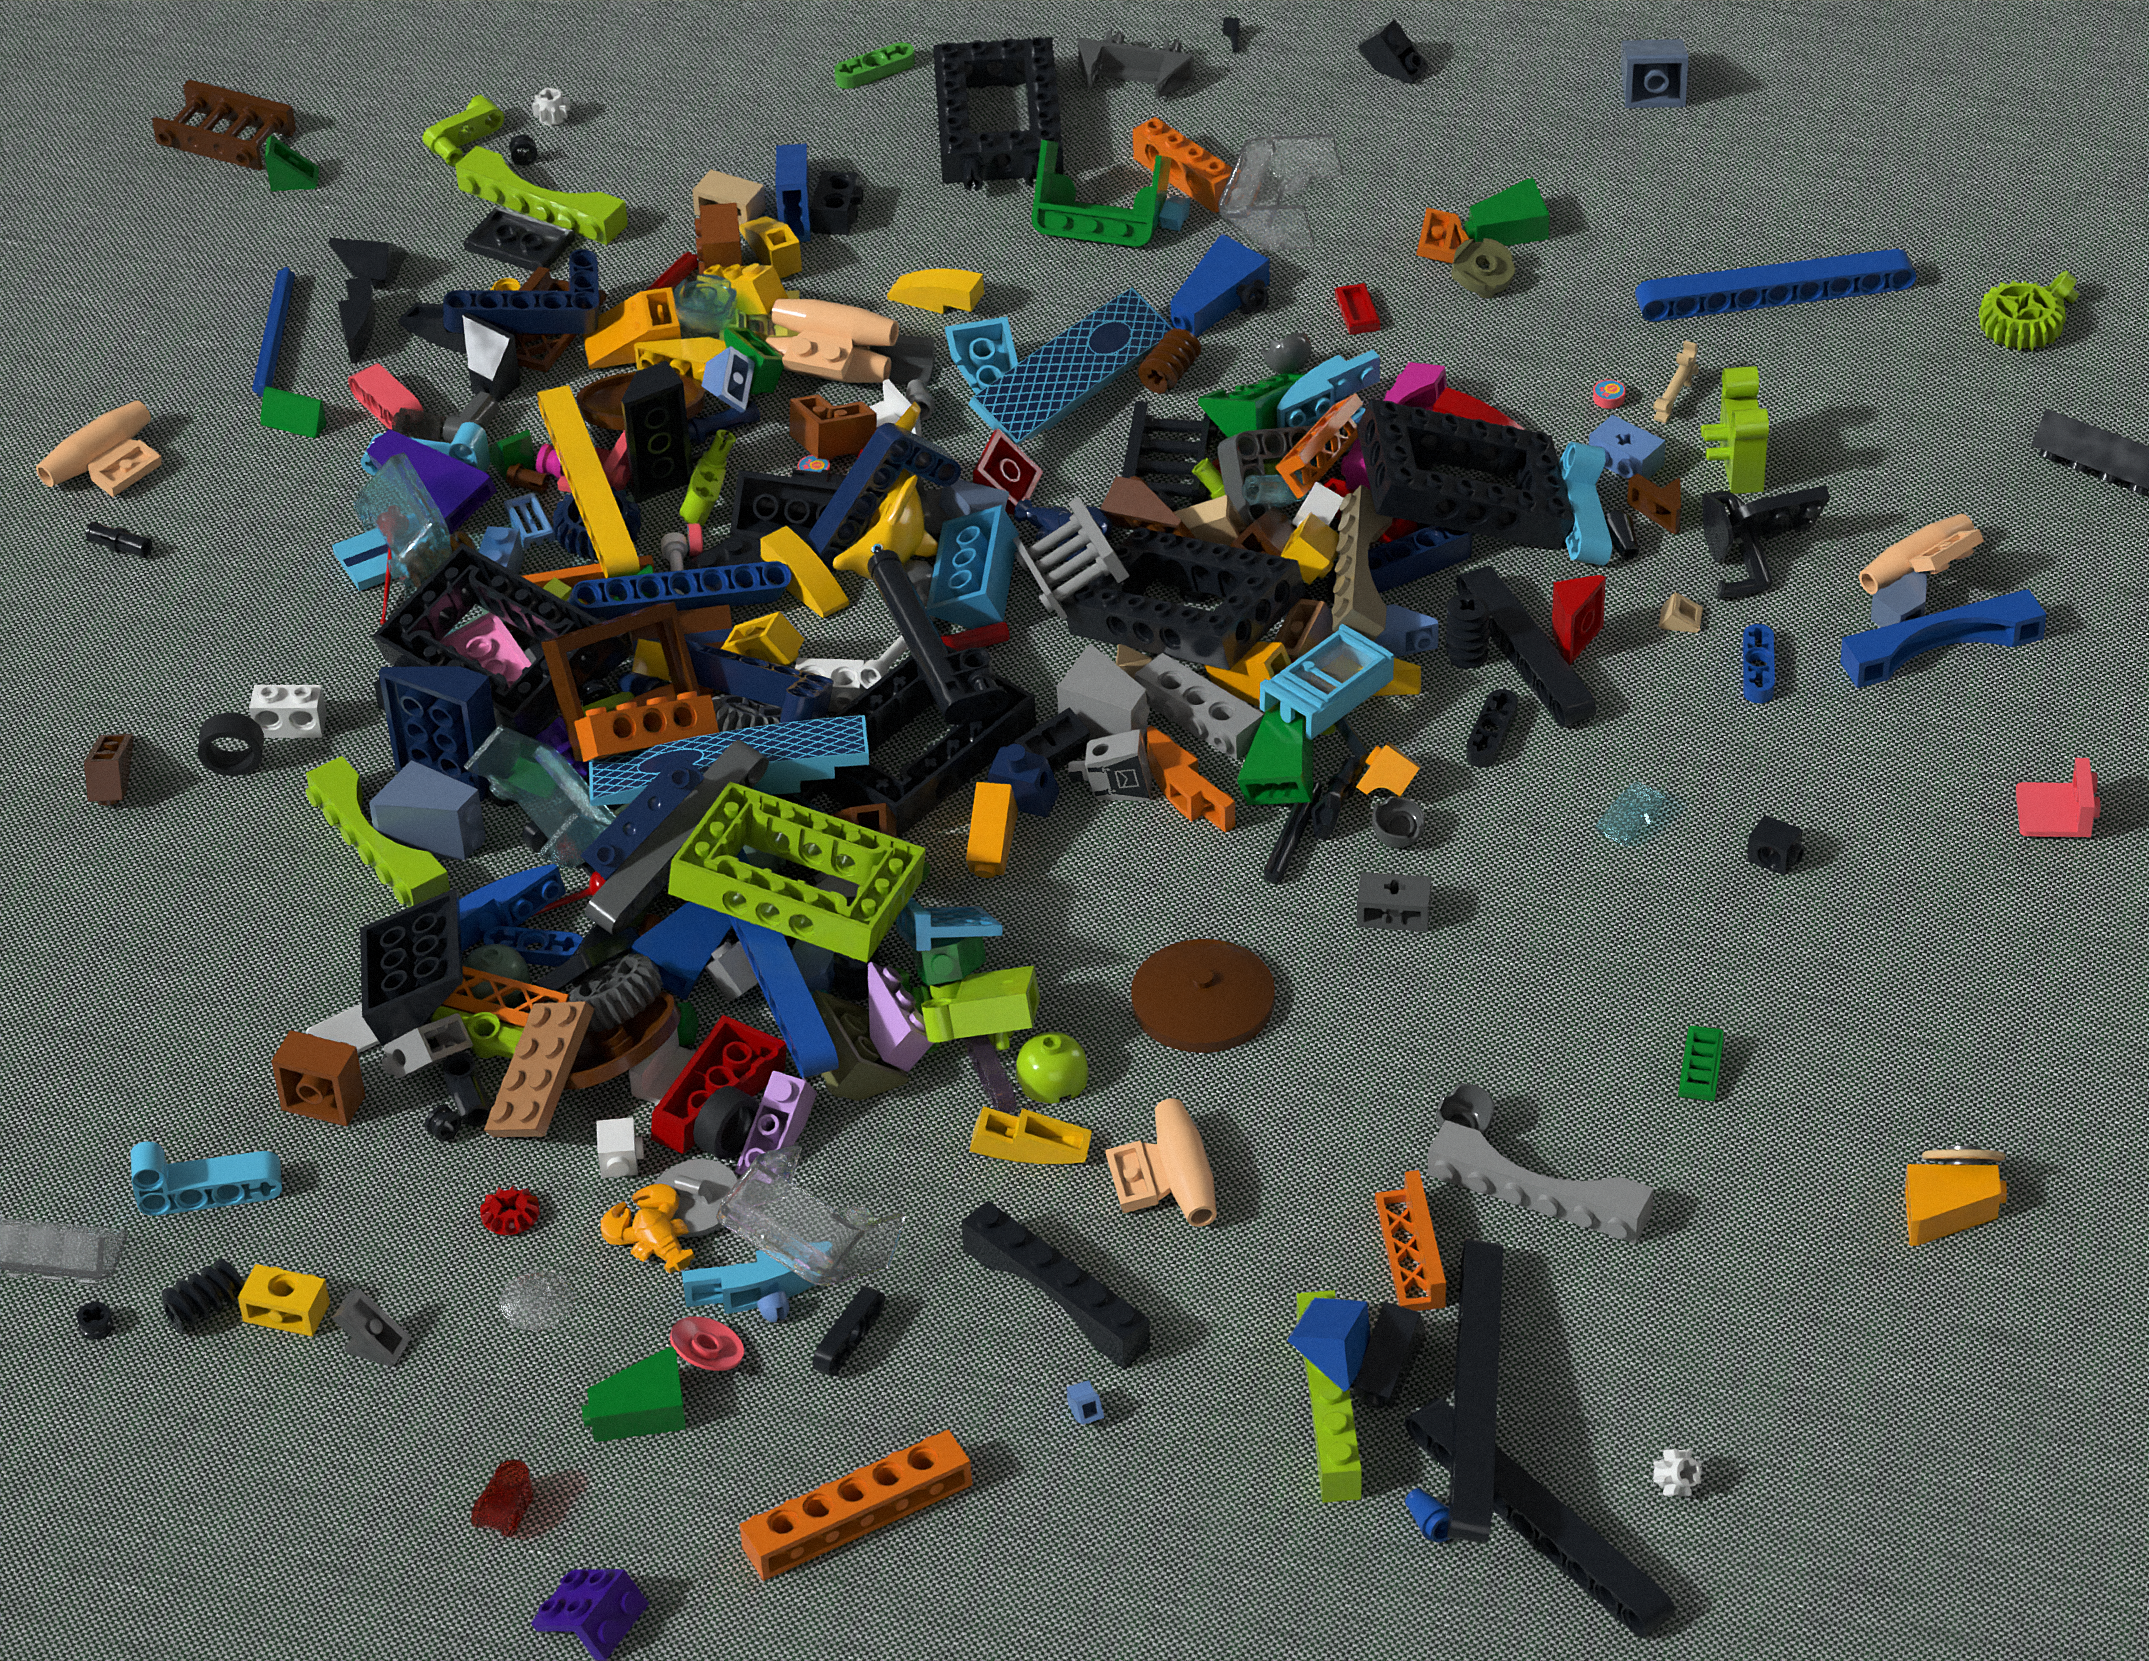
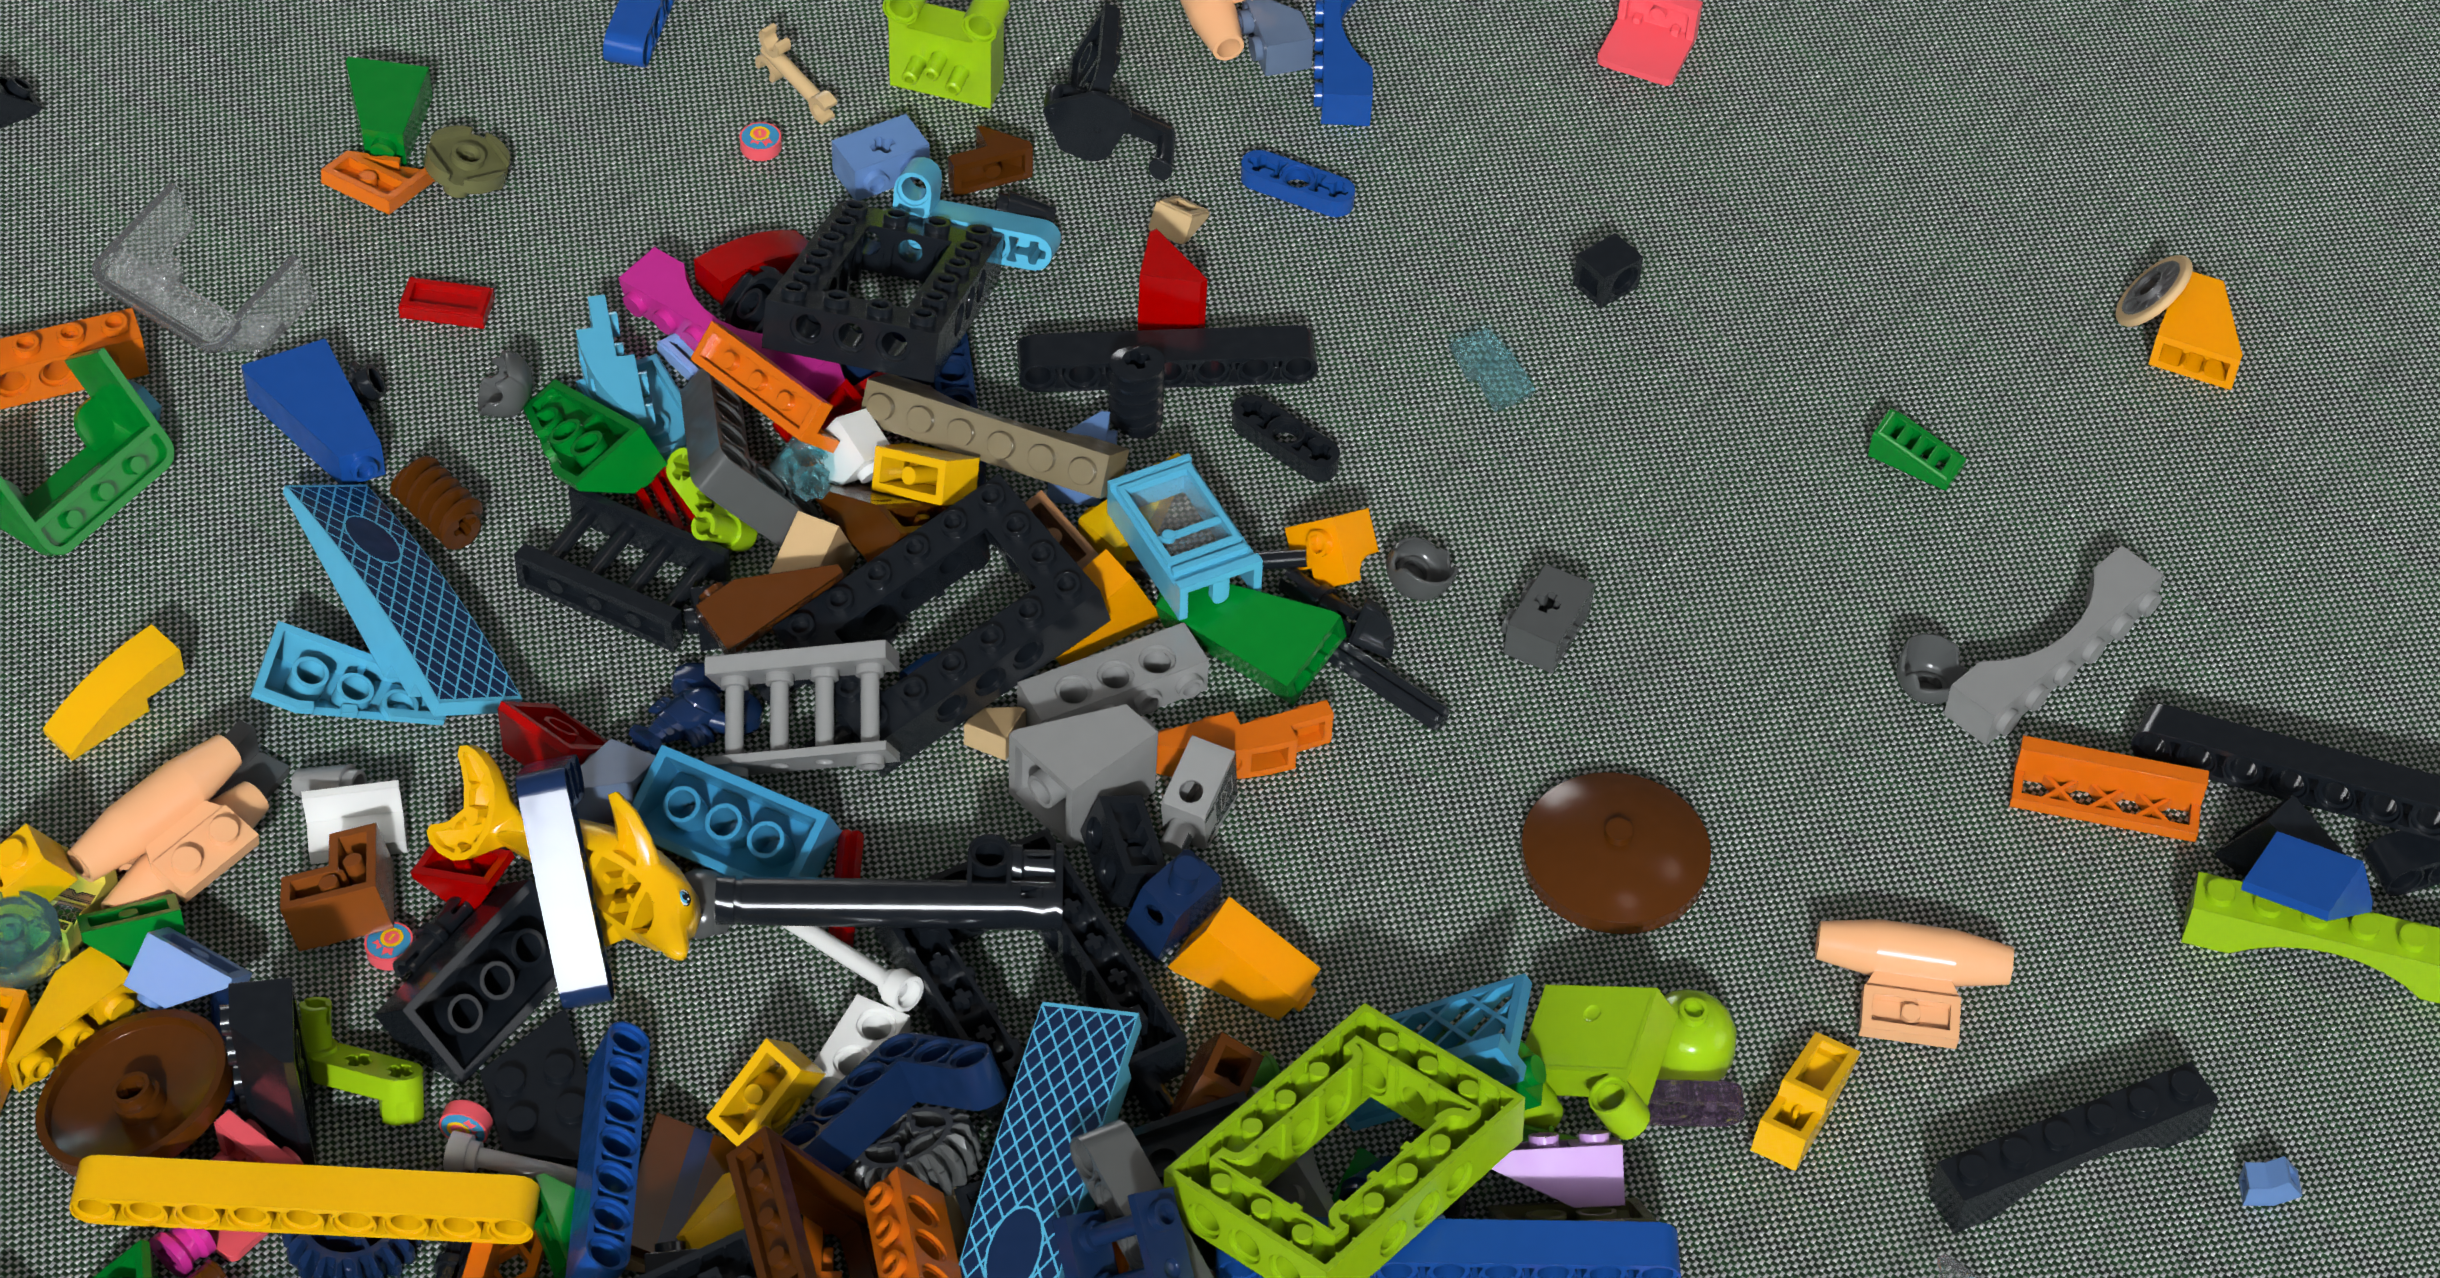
camera: 75 degrees left, 5 degrees up
(810, 577) = (582, 1015): yellow slope -> none

